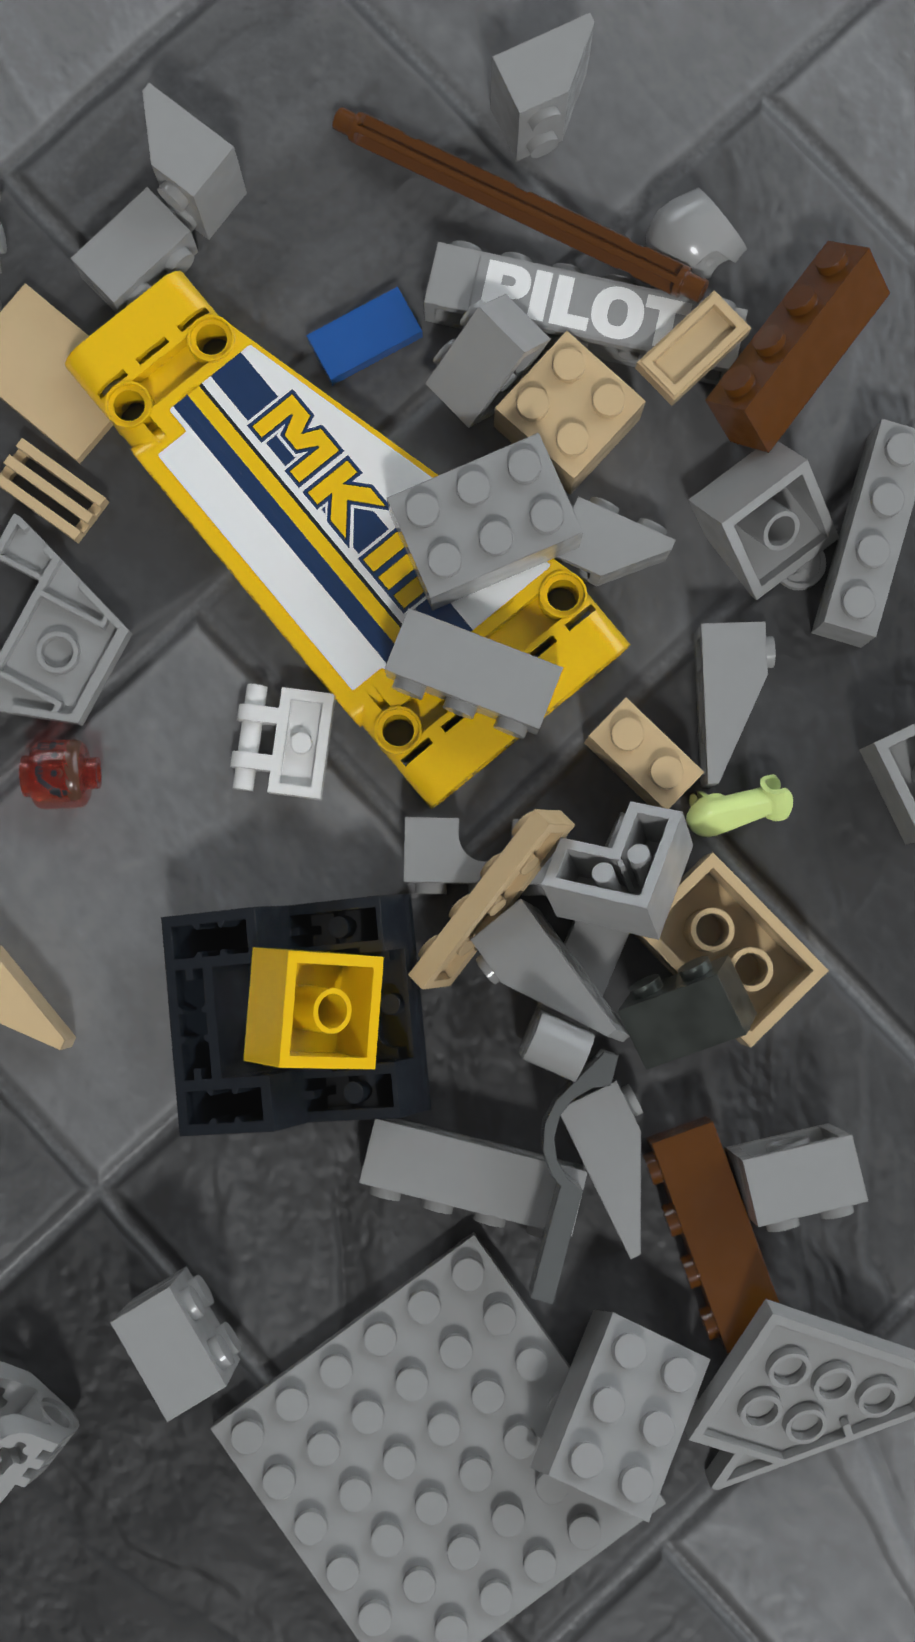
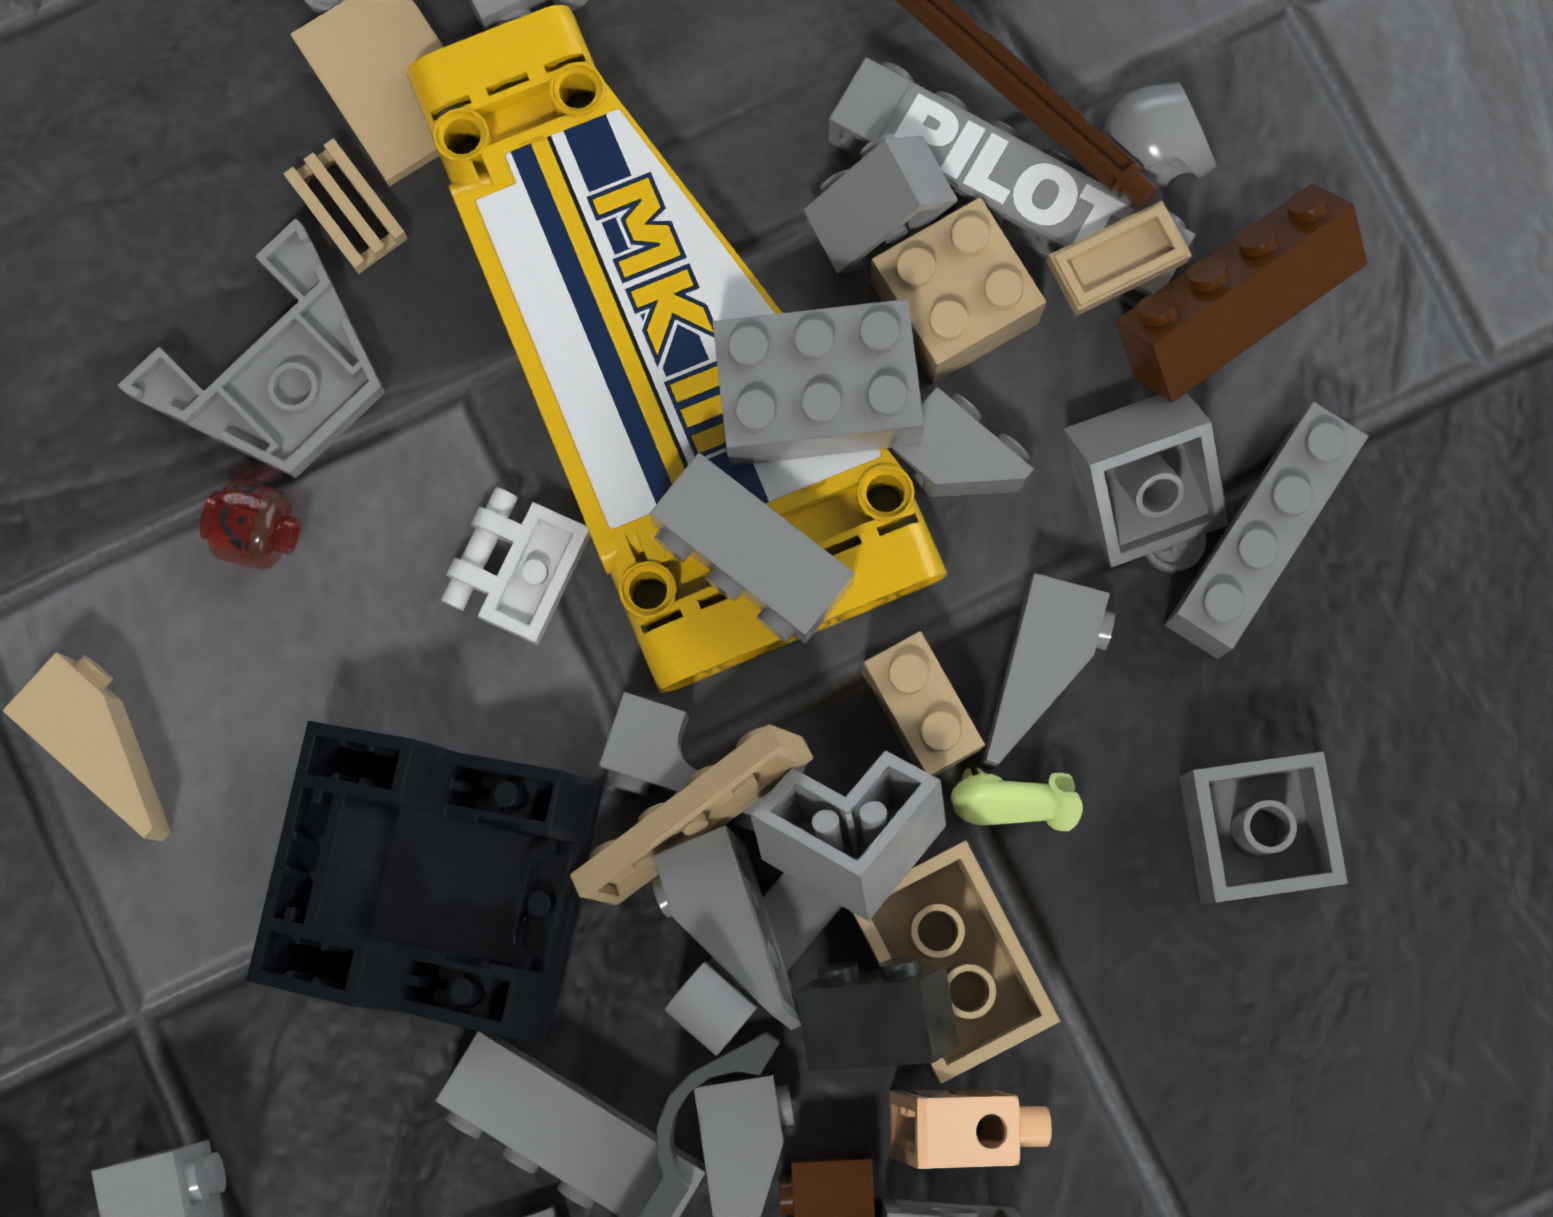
camera: 20 degrees right, 5 degrees down
(313, 1009) = (443, 878): yellow brick -> none
(364, 336) = (754, 138): blue tile -> none
(774, 1075) = (940, 1128): none -> light nougat torso

